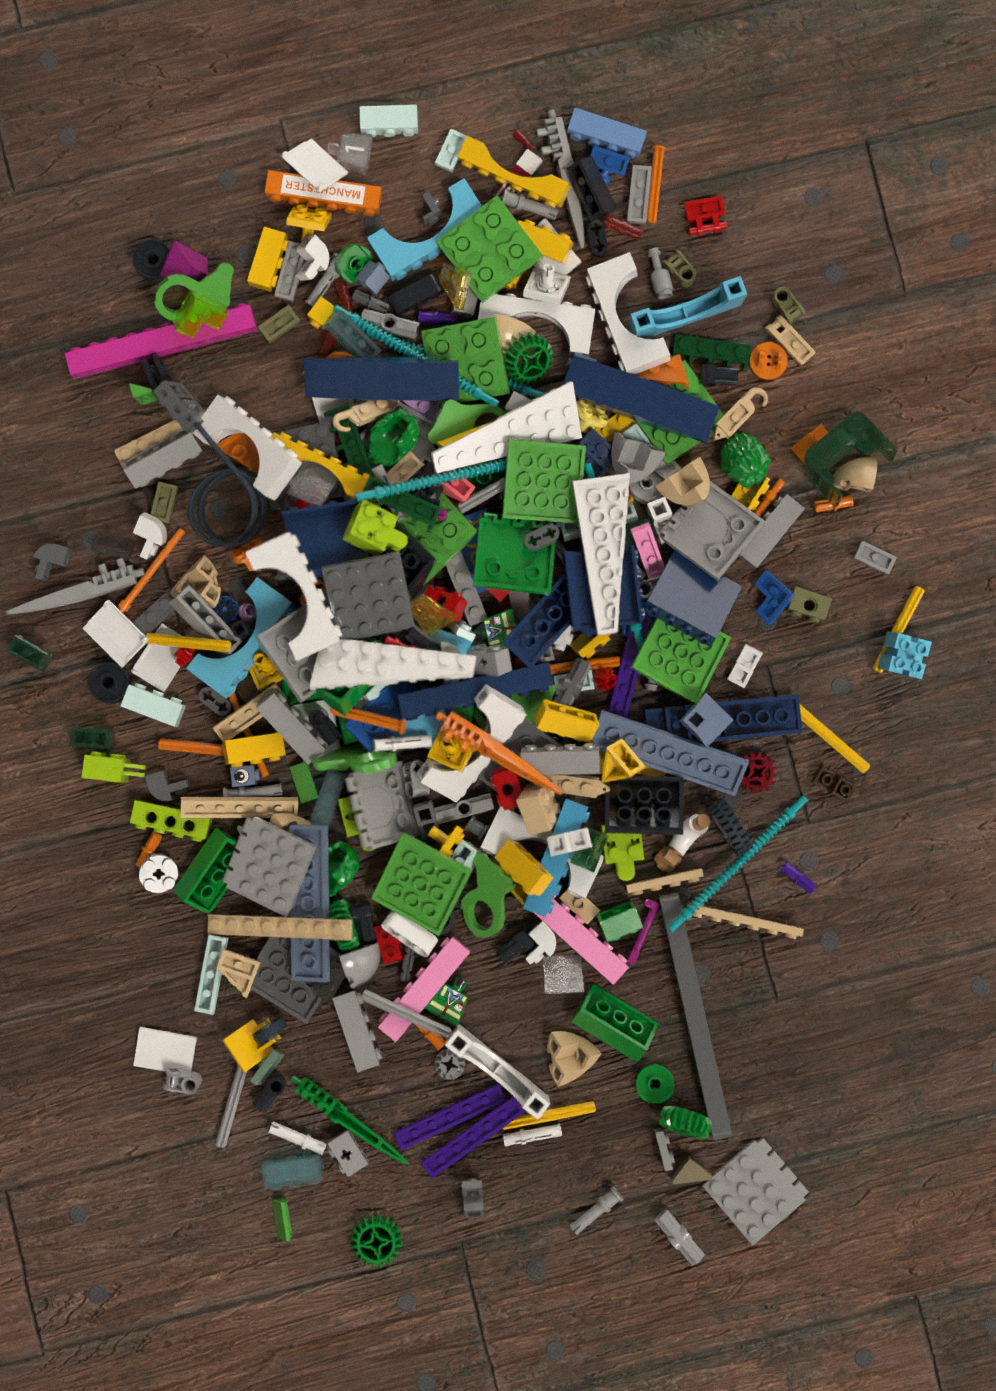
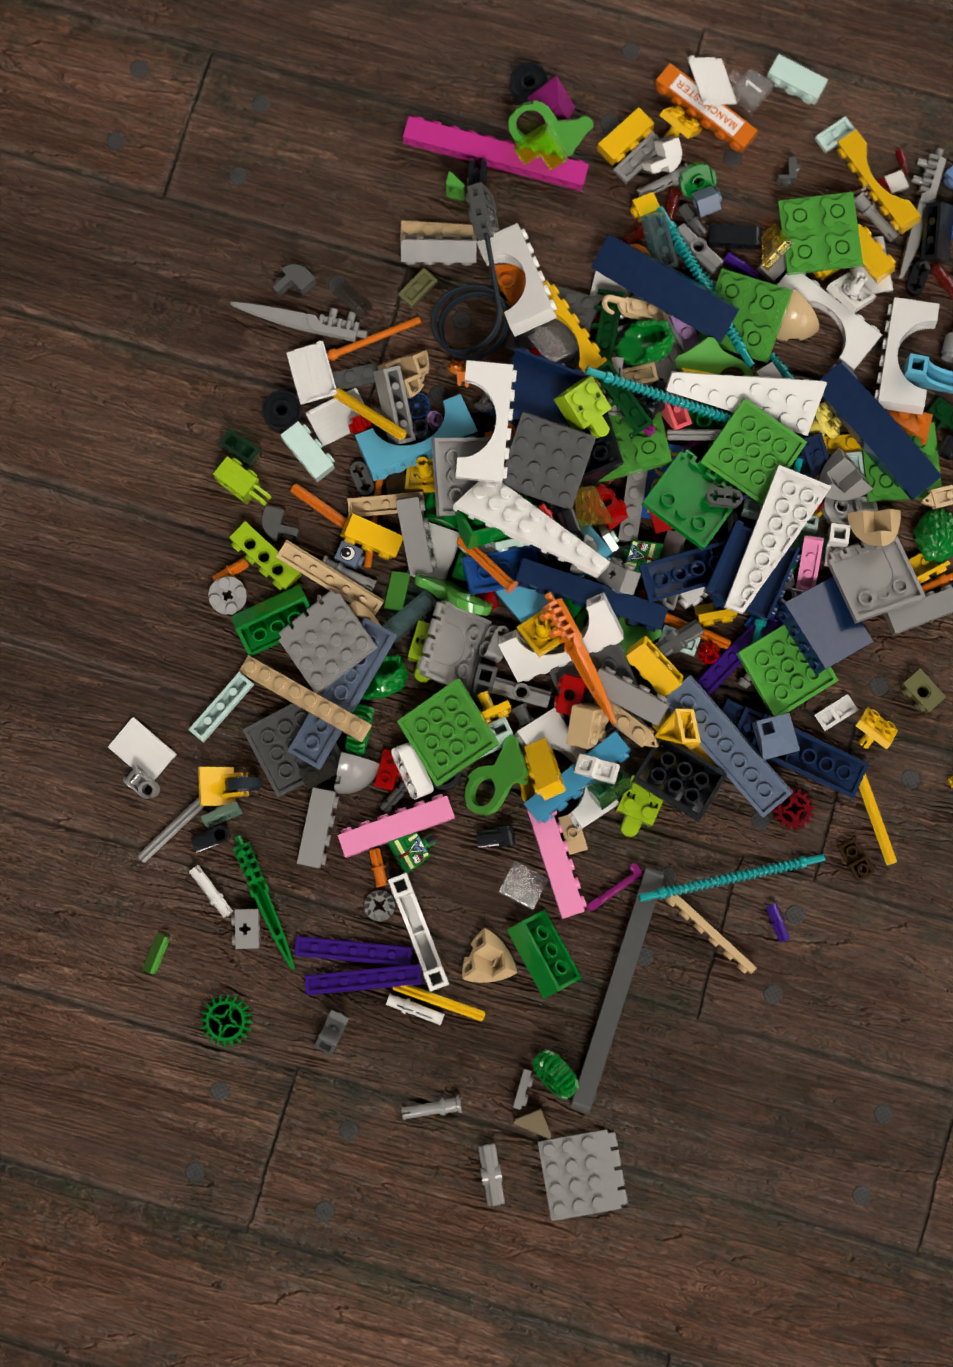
camera: 30 degrees right, 5 degrees down
(30, 653) = (230, 347): clear green brick -> none
(152, 530) = (395, 306): white brick -> none
(239, 970) = (247, 716): tan wing -> none
(279, 324) = (603, 195): olive plate -> none
(292, 1171) = (190, 918): clear light blue brick -> none
(326, 728) = (443, 554): black piece -> none
(363, 916) = (379, 735): black piece -> none
(401, 256) = (742, 199): medium azure arch -> none
(401, 743) = (496, 598): white pin -> none
(406, 1014) = (368, 837): light grey axle -> none
(522, 368) = (810, 336): green gear -> none
(546, 942) = (525, 846): white brick -> none
(619, 921) = (599, 868): brick -> none
(654, 1094) = (554, 1018): green plate -> none
(671, 879) = (665, 858): tan plate -> none
(692, 828) = (708, 826): piece -> none
(730, 827) = (743, 841): black wheel -> none
(777, 596) = (898, 669): blue plate -> none
(787, 661) = (876, 729): none -> yellow plate

